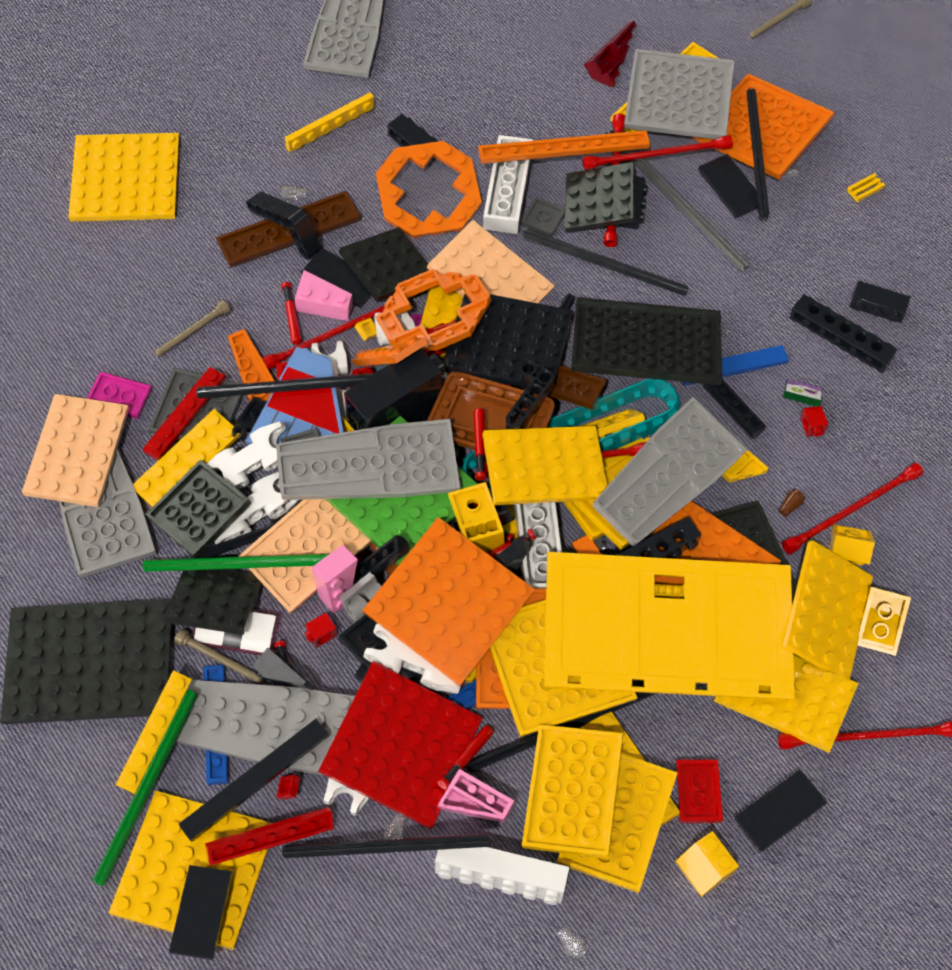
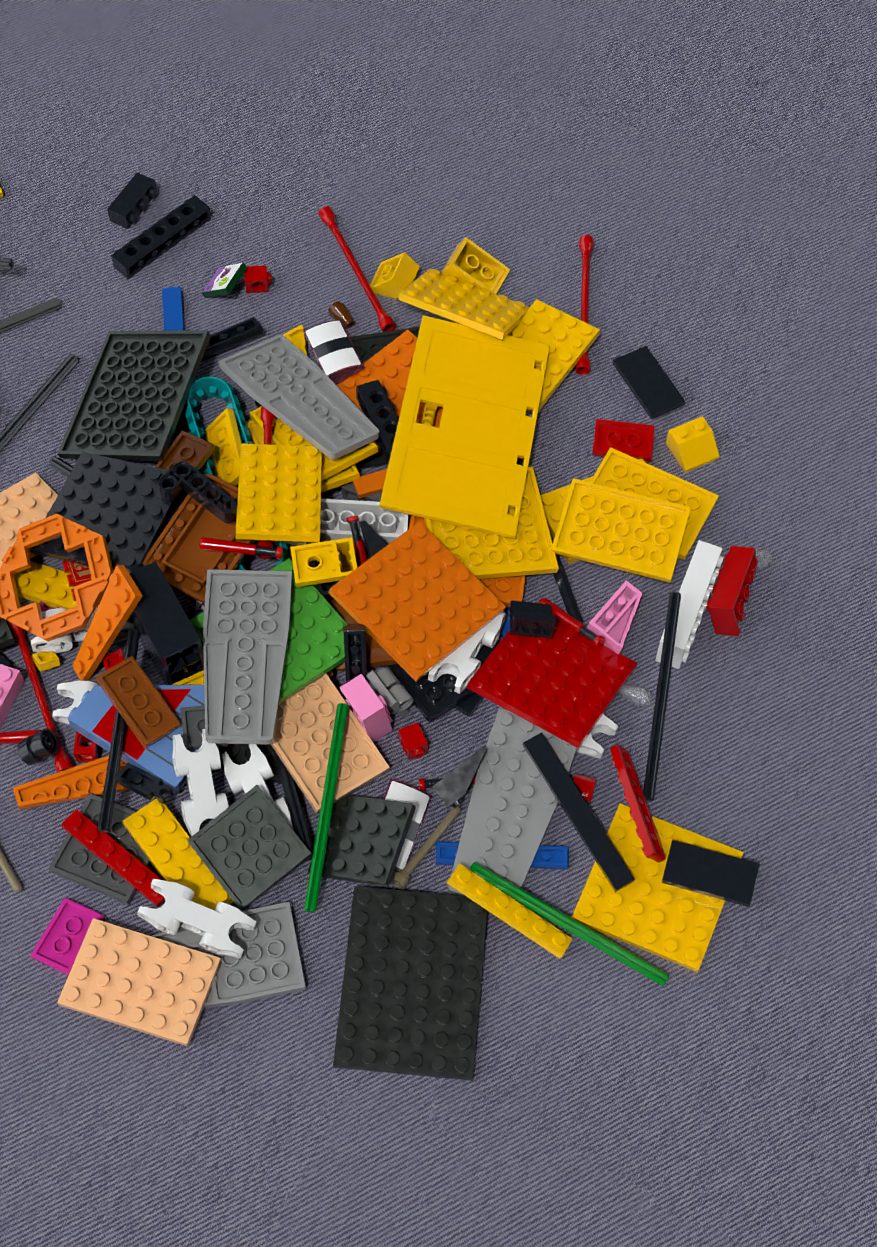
camera: 80 degrees left, 0 degrees up
(131, 466) = (209, 923): none -> white piece
(280, 337) = (38, 747): none -> black wheel
(315, 392) = (138, 702): none -> dark orange tile
(458, 715) = (531, 619): none -> black bracket
(526, 913) = (732, 590): none -> red wedge
(738, 498) = (334, 350): none -> slope

